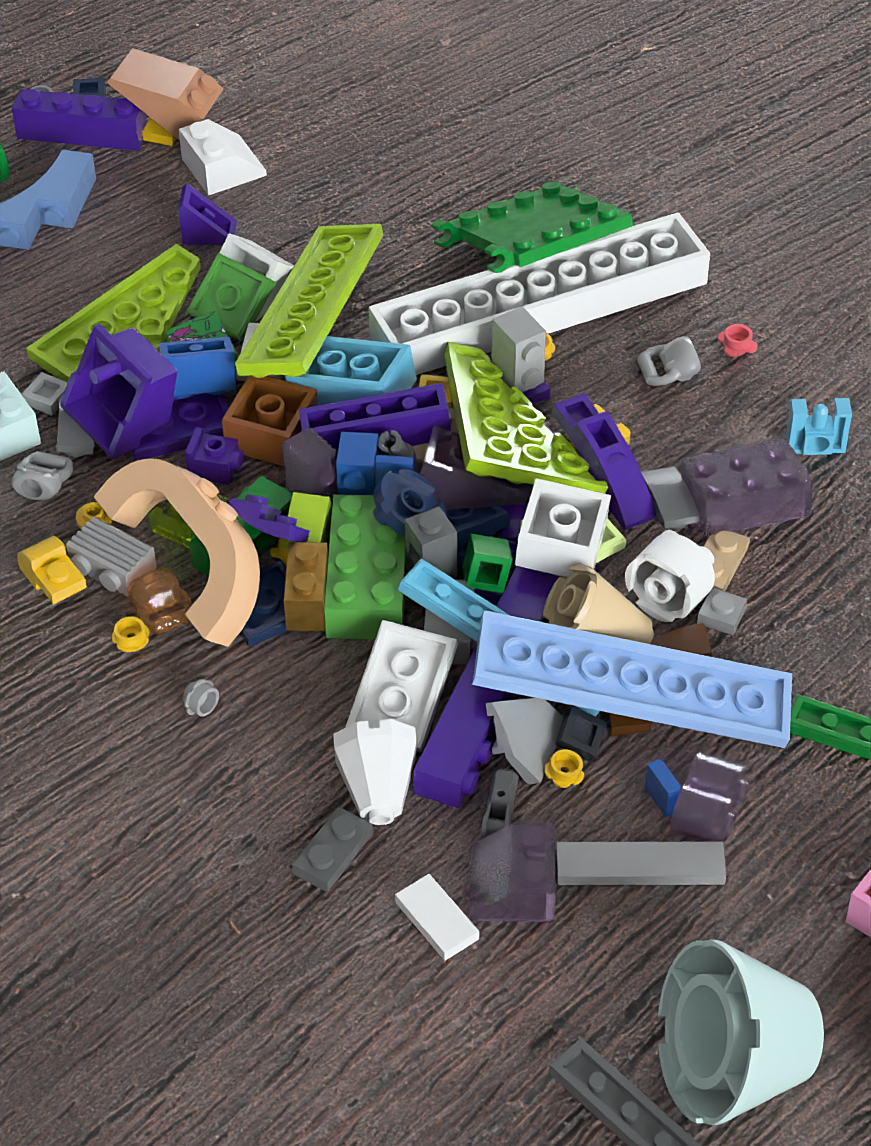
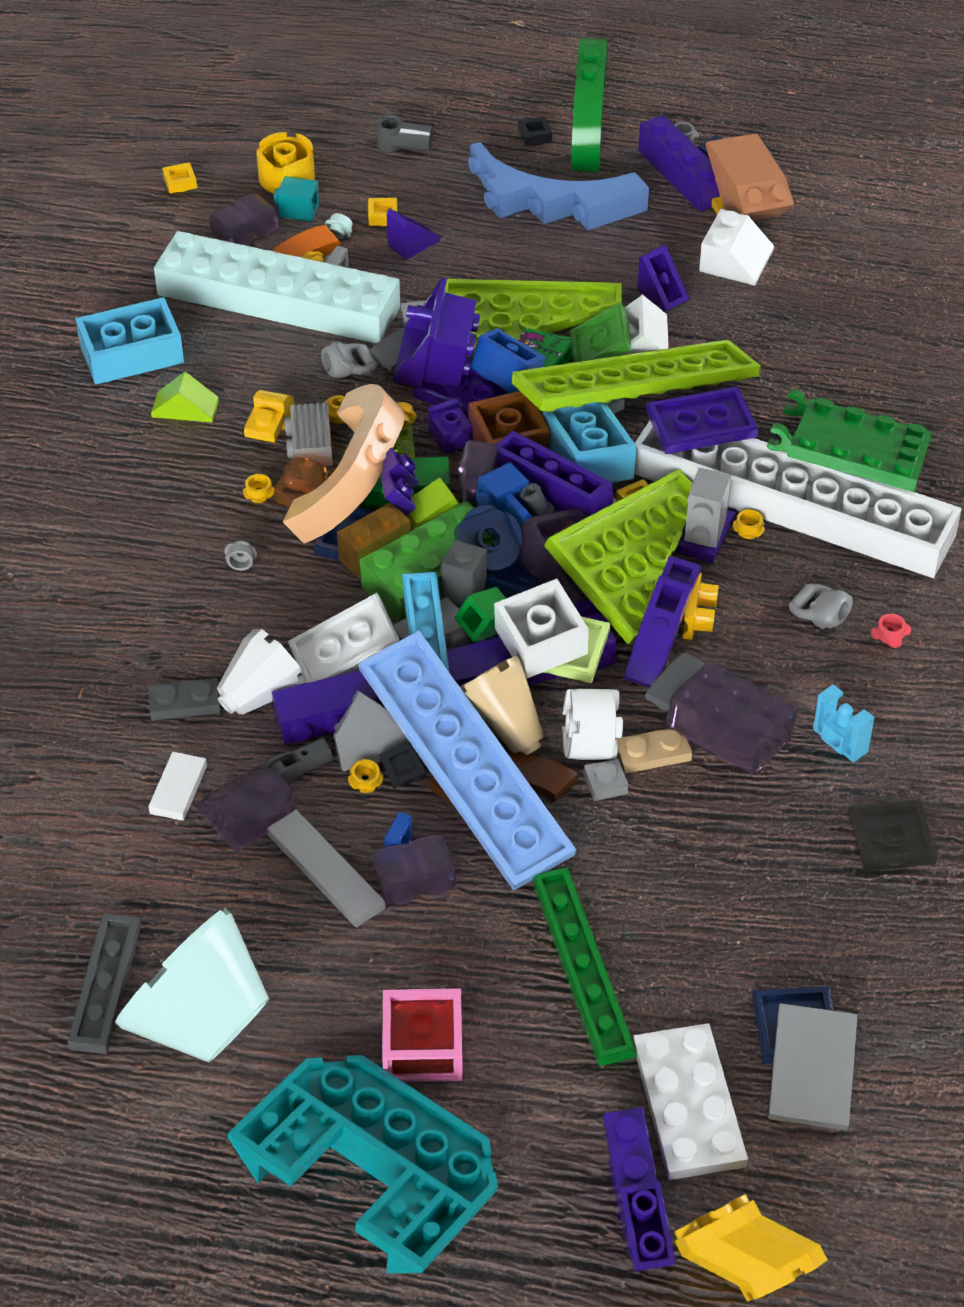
camera: 50 degrees right, 0 degrees up
(419, 290) = (702, 420): none -> dark purple tile

